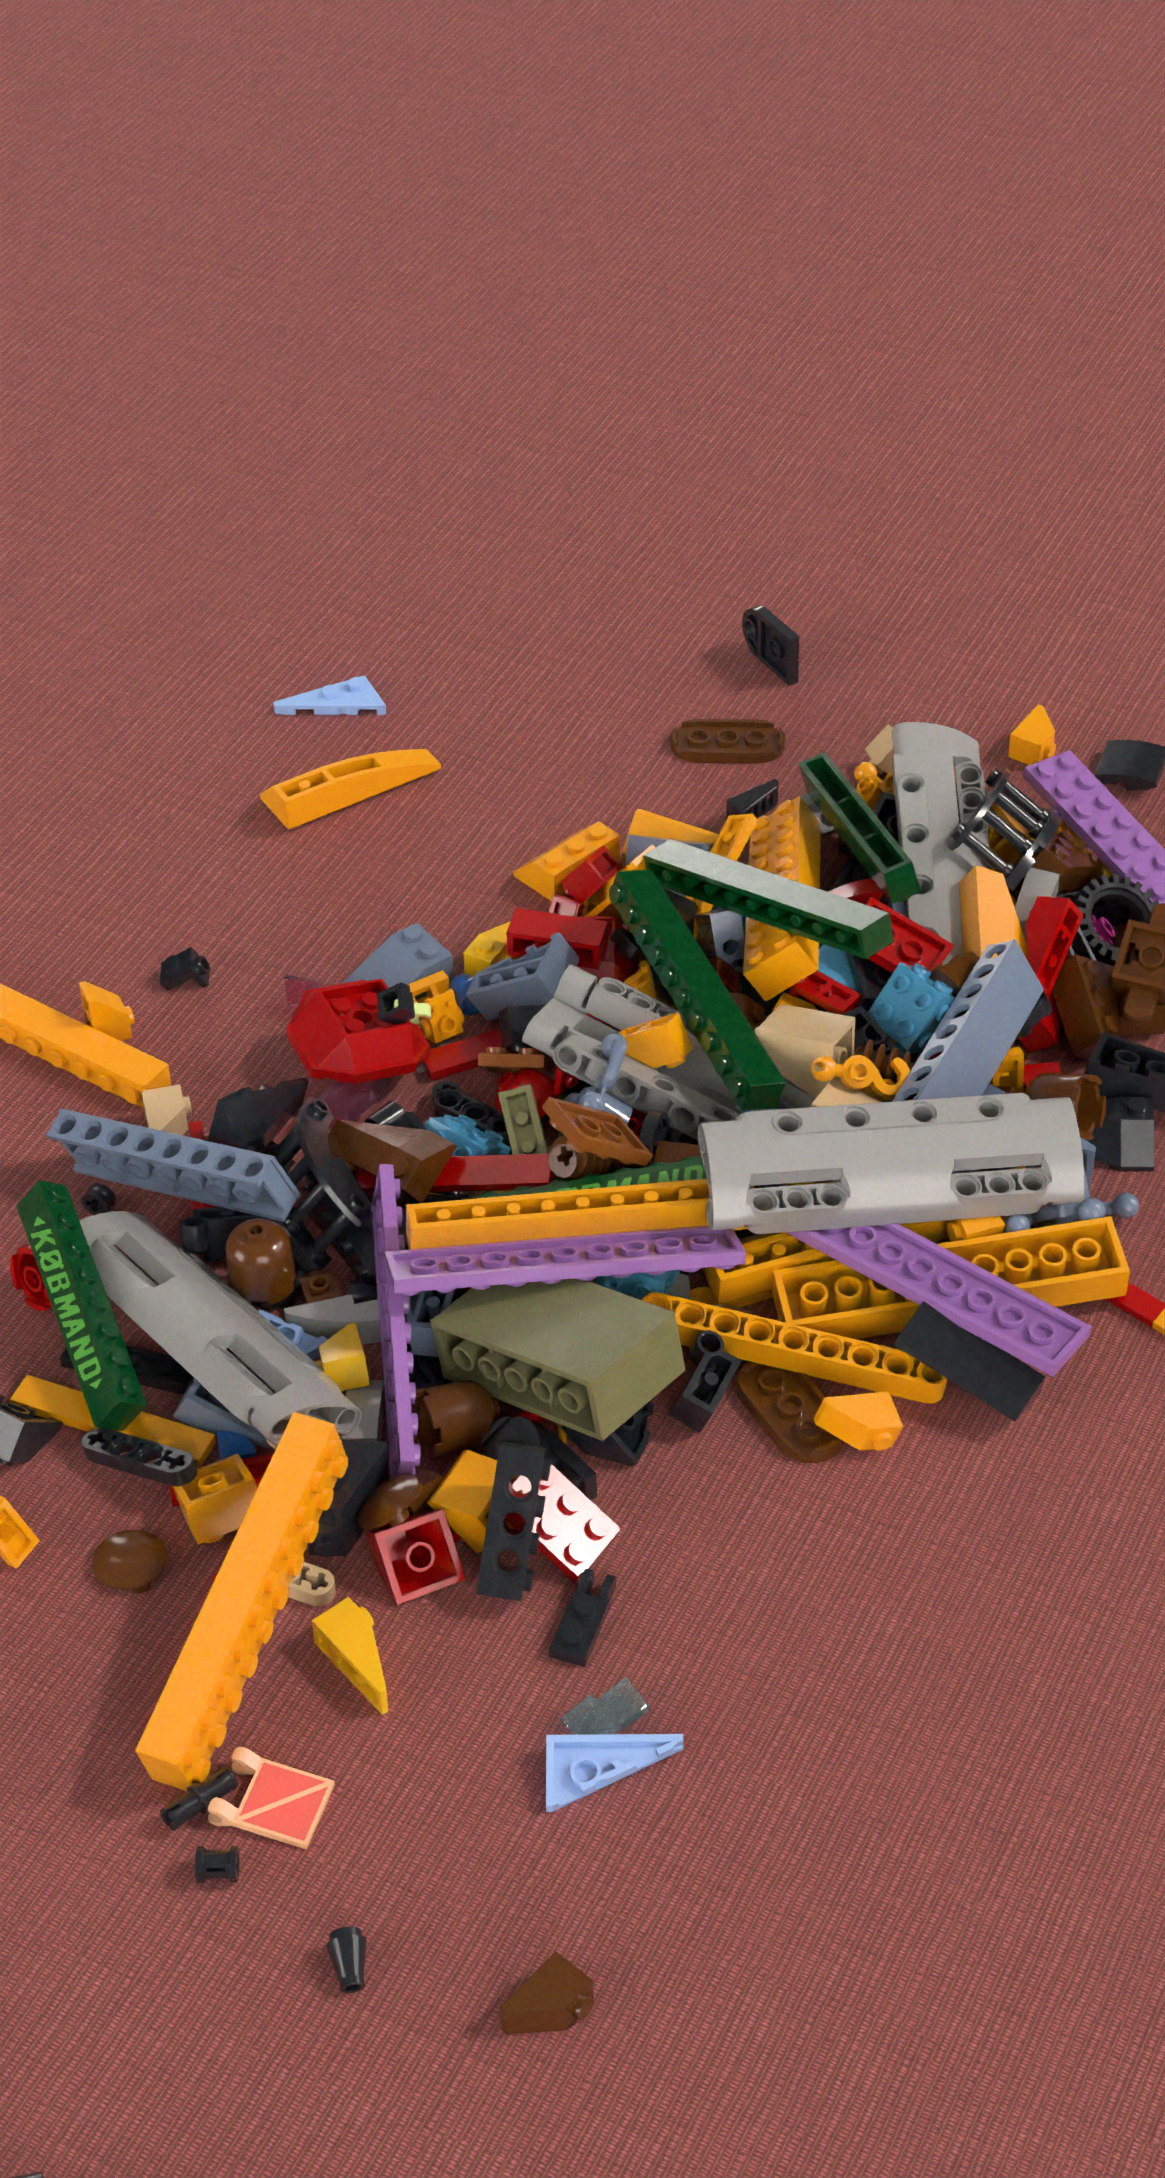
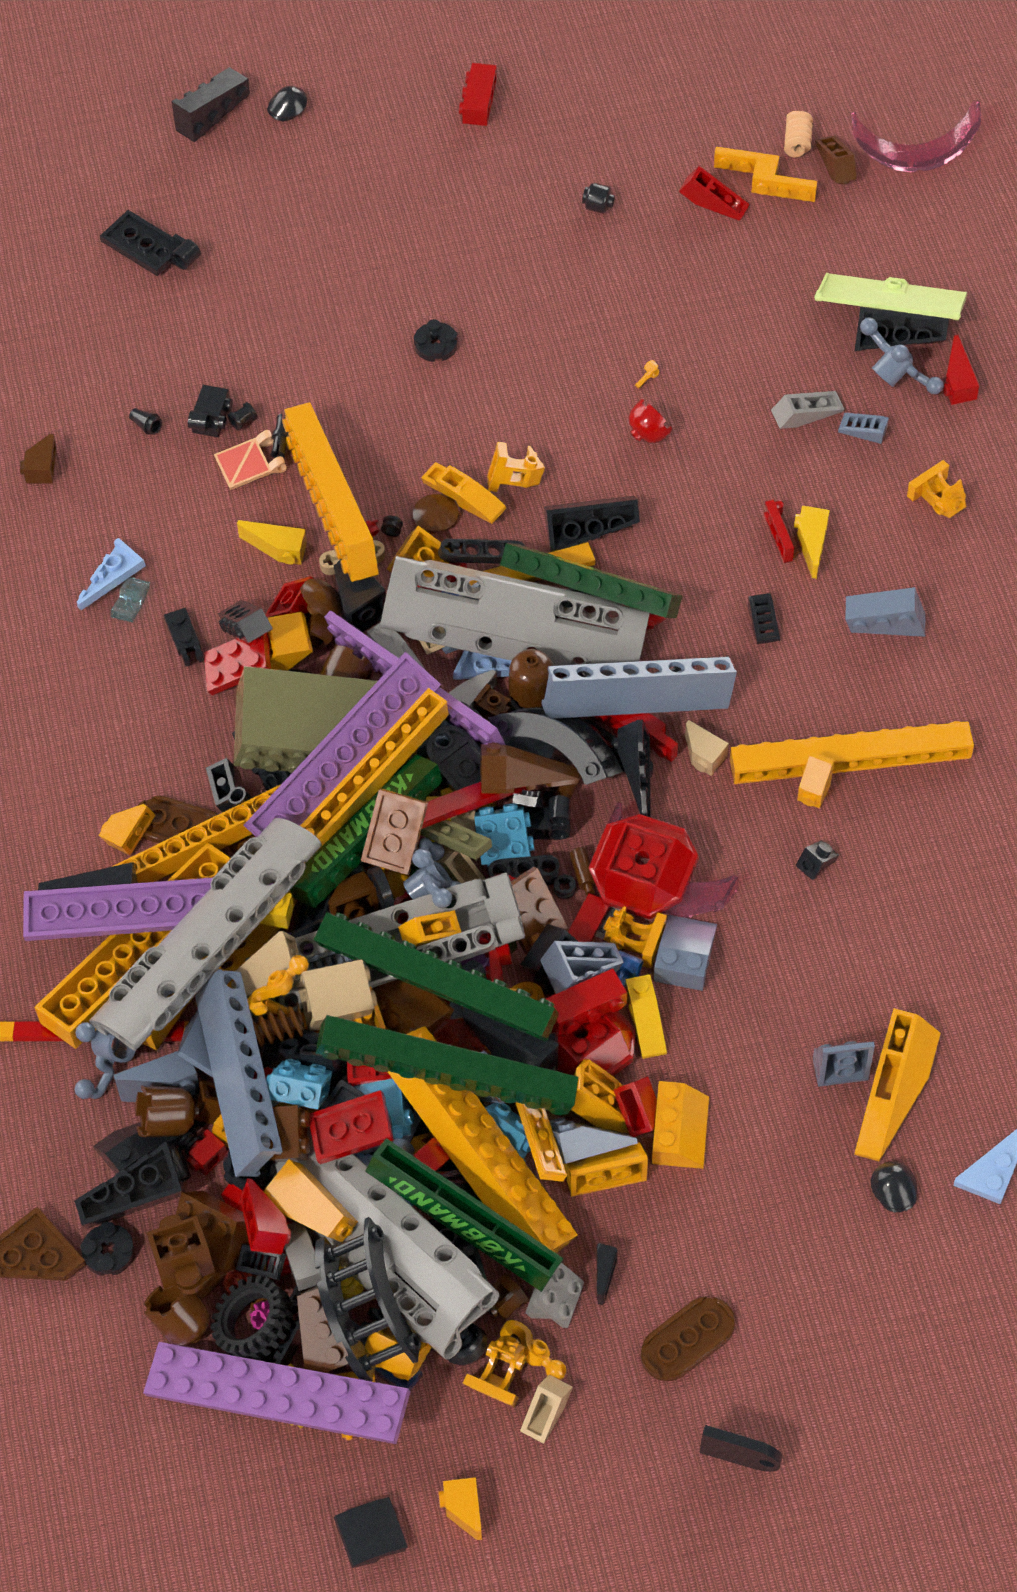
camera: 140 degrees right, 15 degrees up
(74, 1551) = (465, 491): none -> light orange slope
(198, 1573) = (392, 525): none -> black bush
(254, 1899) = (210, 411): none -> black hinge
(344, 1359) = (438, 665): yellow slope -> none
(373, 797) = (843, 1062): none -> sand blue slope
(398, 1006) = (619, 865): black piece -> none
(416, 1090) = (581, 863): none -> reddish brown cylinder
(436, 731) = (894, 1186): none -> black hat
(566, 906) = (632, 1074): tile -> none

